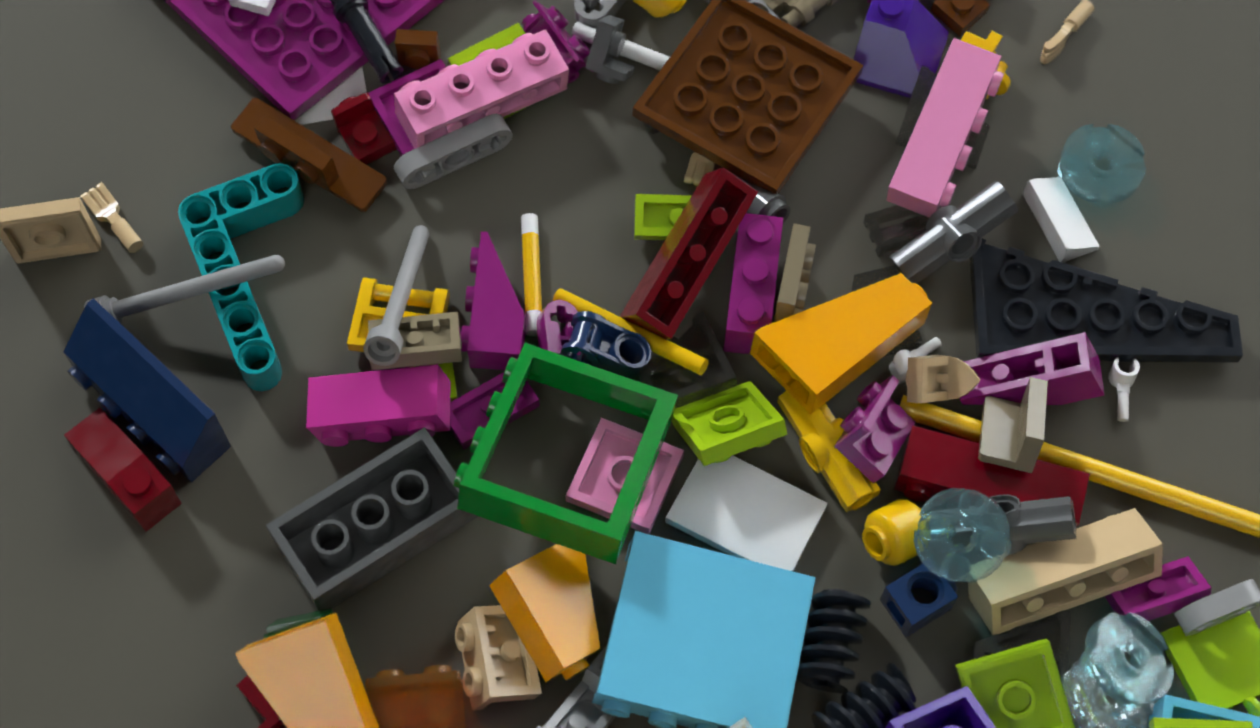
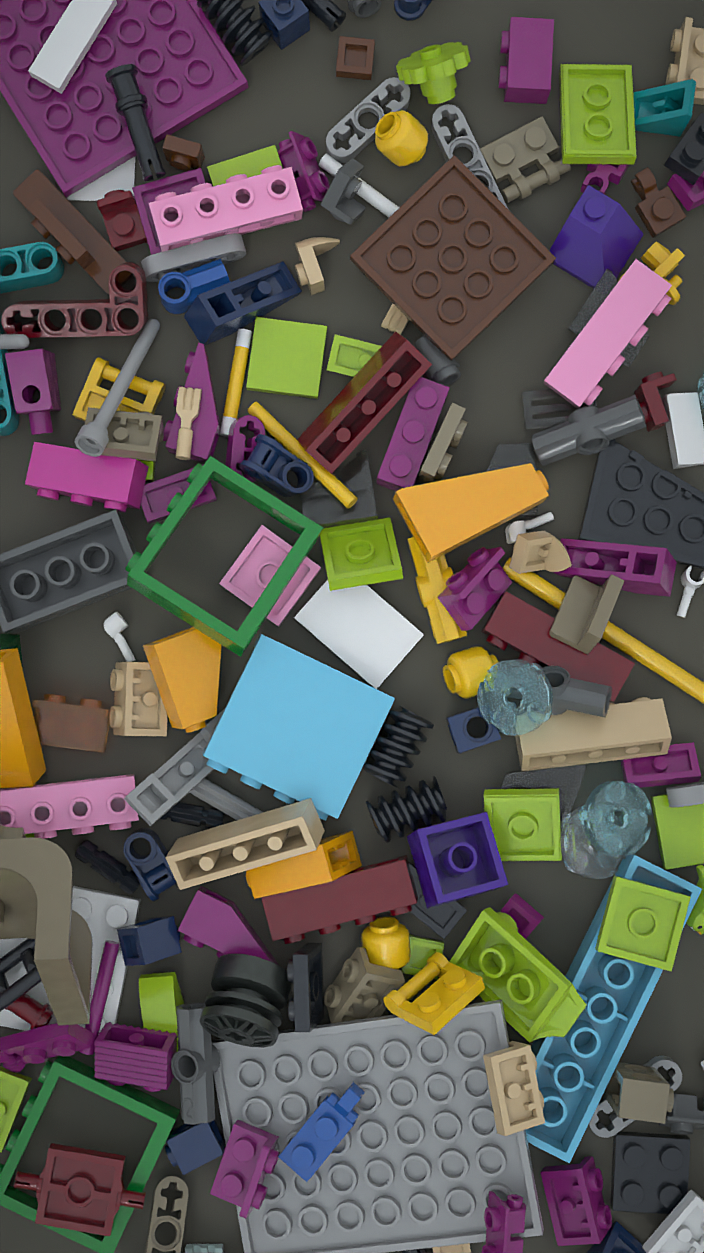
camera: 15 degrees right, 20 degrees up
(294, 309) = (30, 372): none -> magenta torso
(329, 227) = (76, 309): none -> dark red beam
(446, 578) = (114, 626): none -> white hand
(461, 179) = (193, 282): none -> blue piece
(486, 304) = (188, 410): none -> tan piece
(516, 186) = (239, 302): none -> dark blue slope
(585, 236) = (286, 358): none -> lime tile
(586, 131) = (308, 268): none -> tan plate
(1012, 177) = (650, 399): none -> dark red bracket

